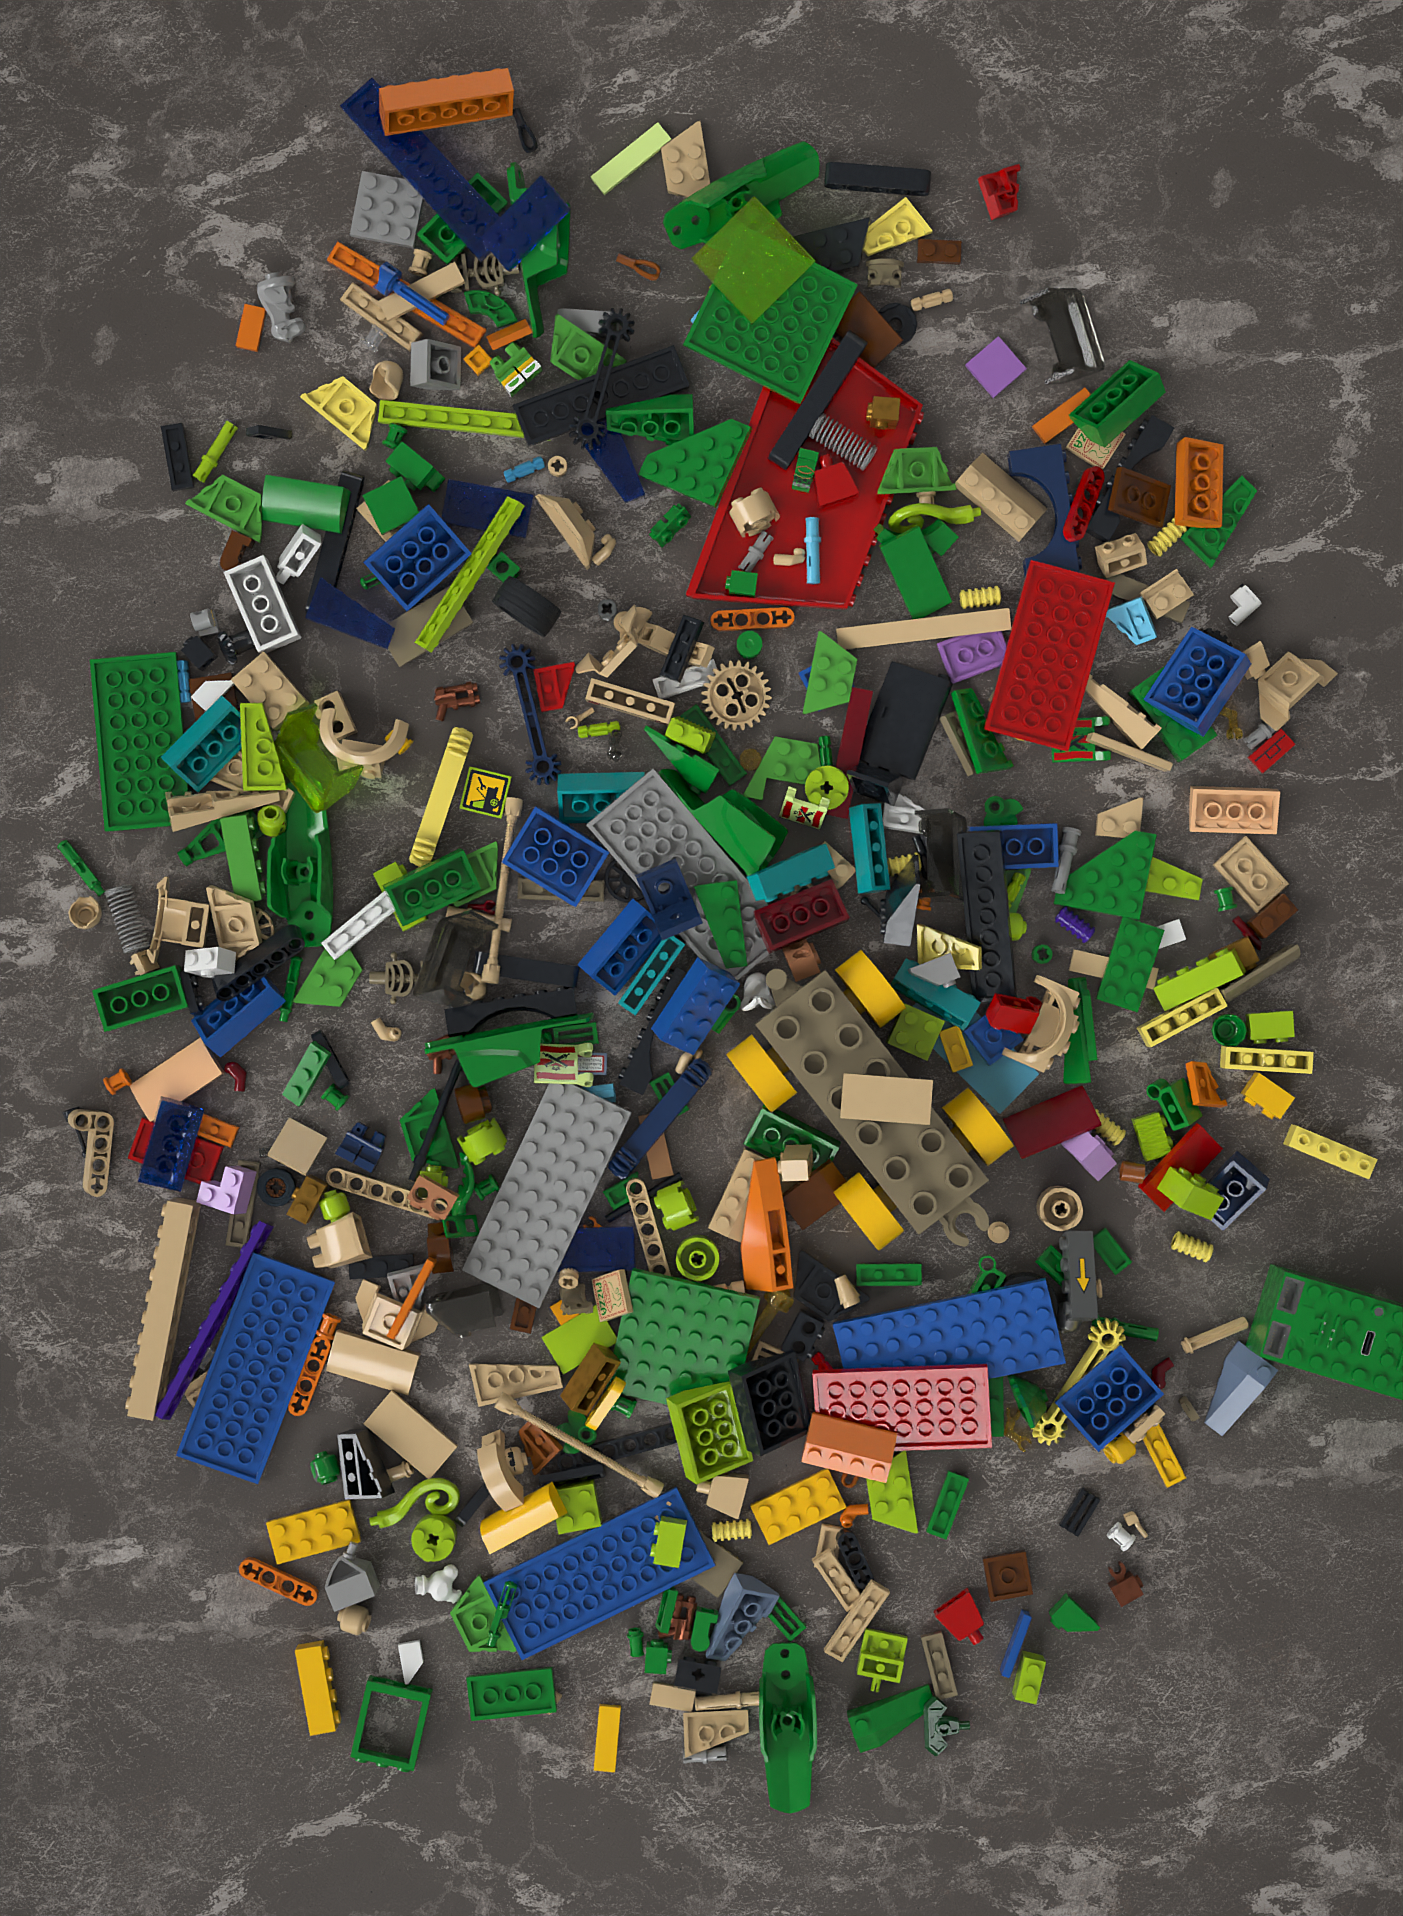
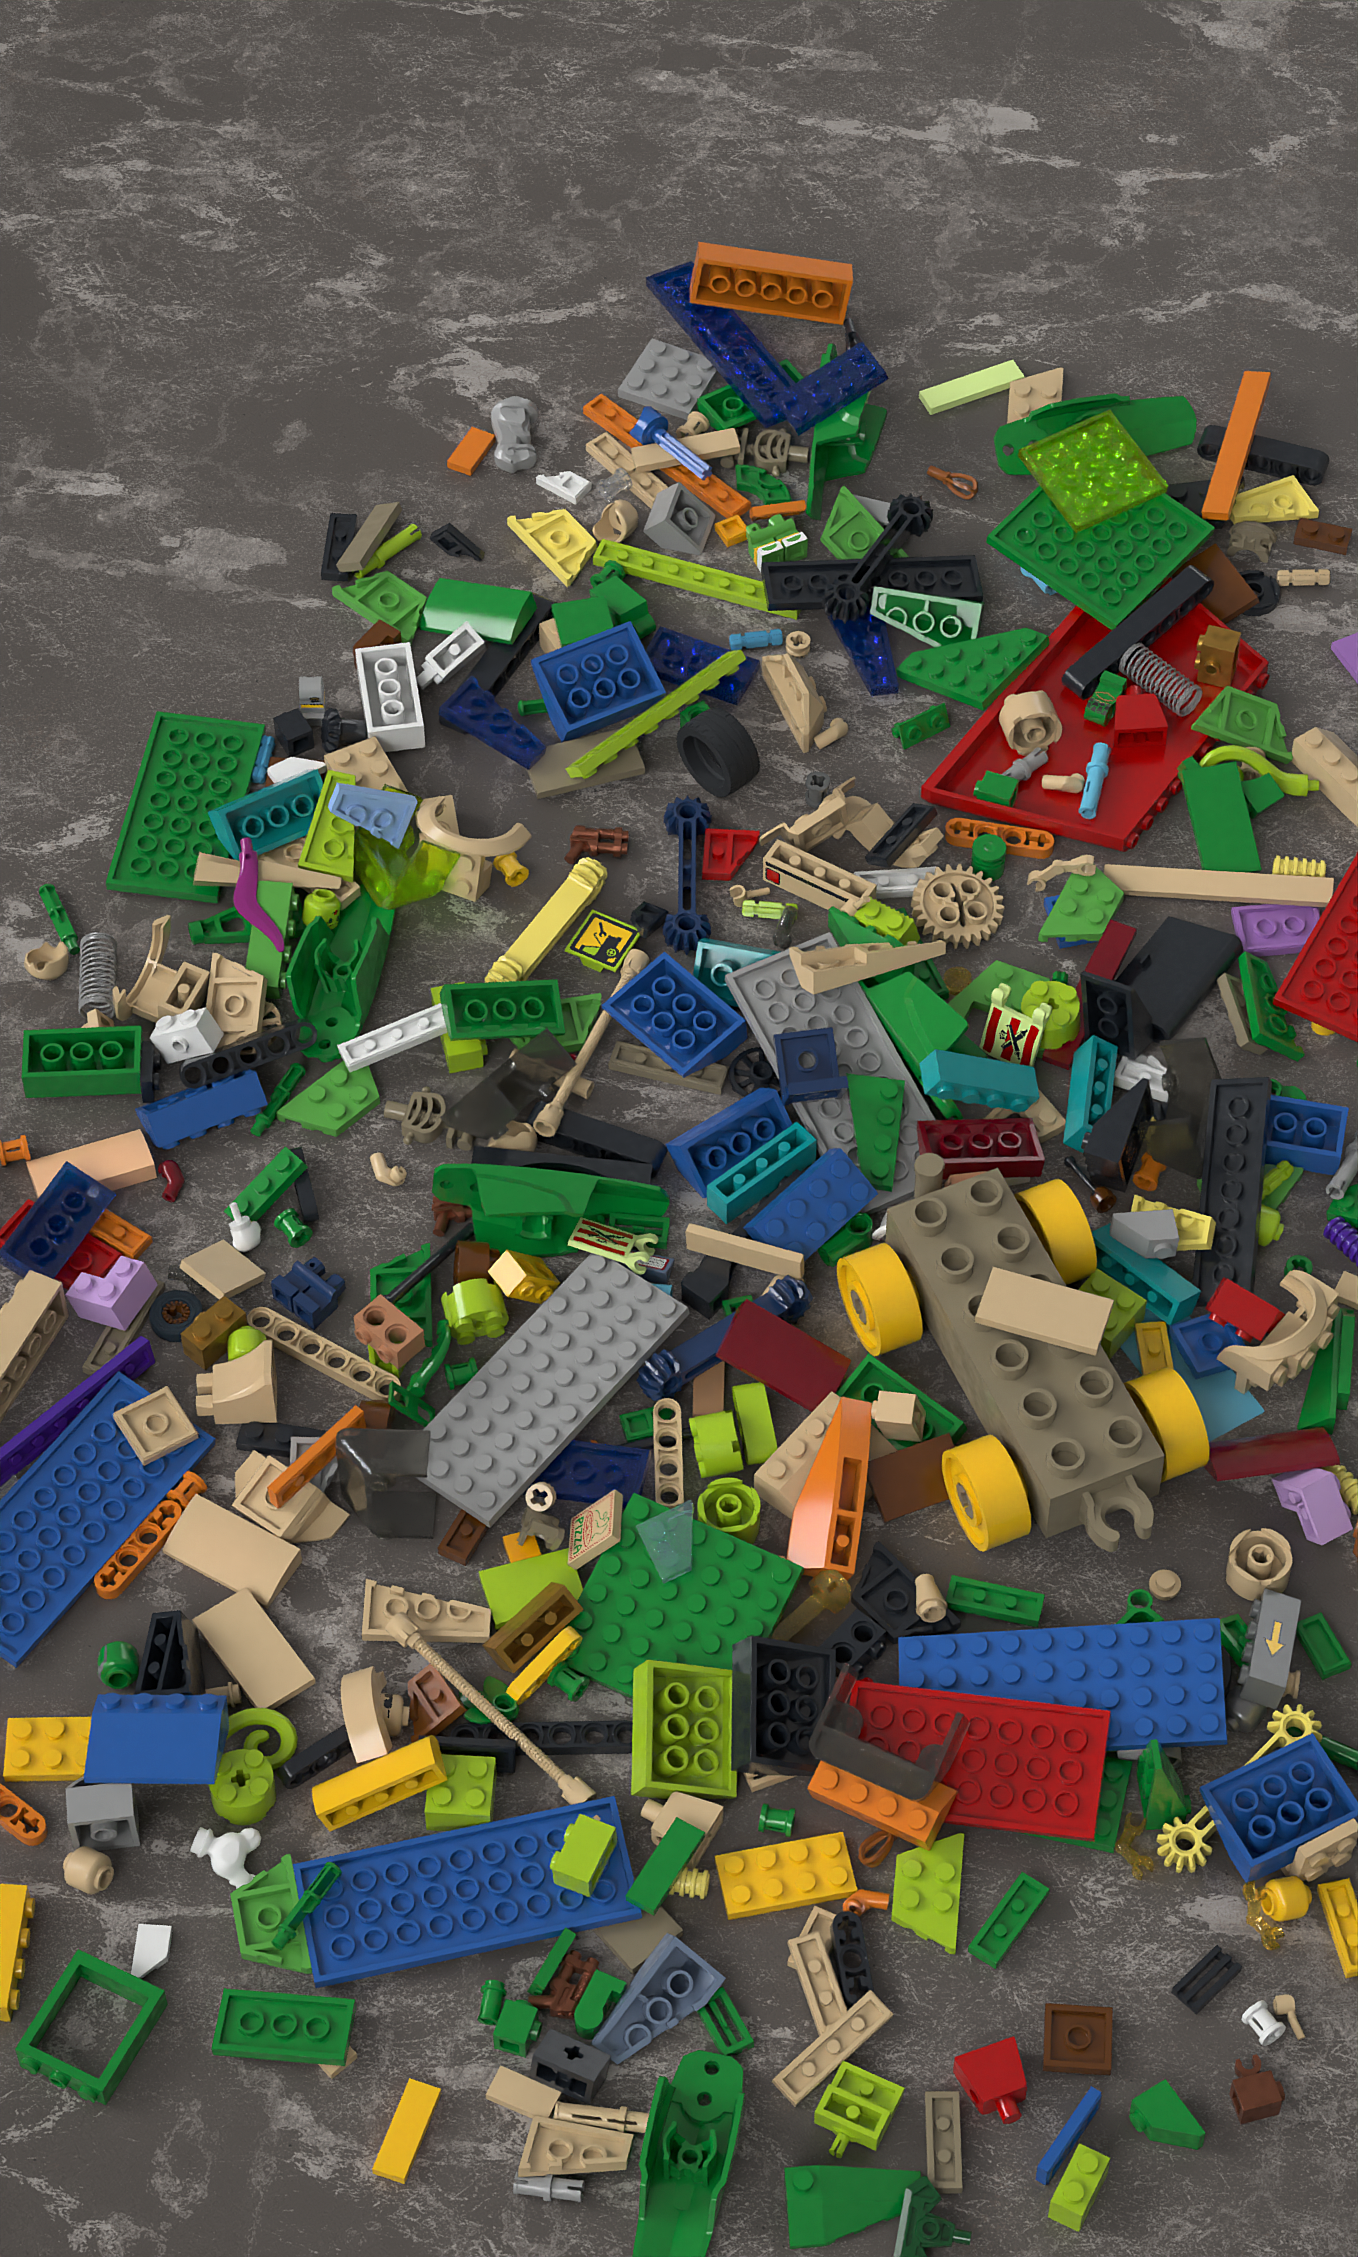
camera: 15 degrees right, 35 degrees down
(199, 446) = (369, 537): none -> dark tan tile
(215, 836) = (245, 895): none -> magenta piece
(285, 733) = (376, 810): none -> light blue wing
(292, 1288) = (155, 1425): none -> tan tile
(302, 1112) = (244, 1232): none -> white piece
(336, 345) = (566, 485): none -> white tile
(371, 1536) = (156, 1738): none -> blue slope
(509, 1107) = (524, 1277): none -> yellow brick
(511, 763) = (648, 918): none -> black tile
(658, 1054) = (744, 1251): none -> tan tile
(661, 728) = (853, 905): none -> tan hand
(666, 1304) = (670, 1540): none -> clear light blue wing
(667, 800) = (843, 965): none -> tan wedge
(696, 1176) = (754, 1422): none -> lime beam
(704, 1129) = (782, 1356): none -> dark red slope
(722, 1533) = (665, 1866): none -> green tile
(784, 1471) = (777, 1820): none -> green bush
(821, 646) = (1081, 865): none -> tan piece
(842, 1435) = (837, 1744): none -> clear smoke windscreen
(857, 185) = (1236, 445): none -> orange tile
(1114, 1473) = (1254, 1917): none -> clear yellow arm

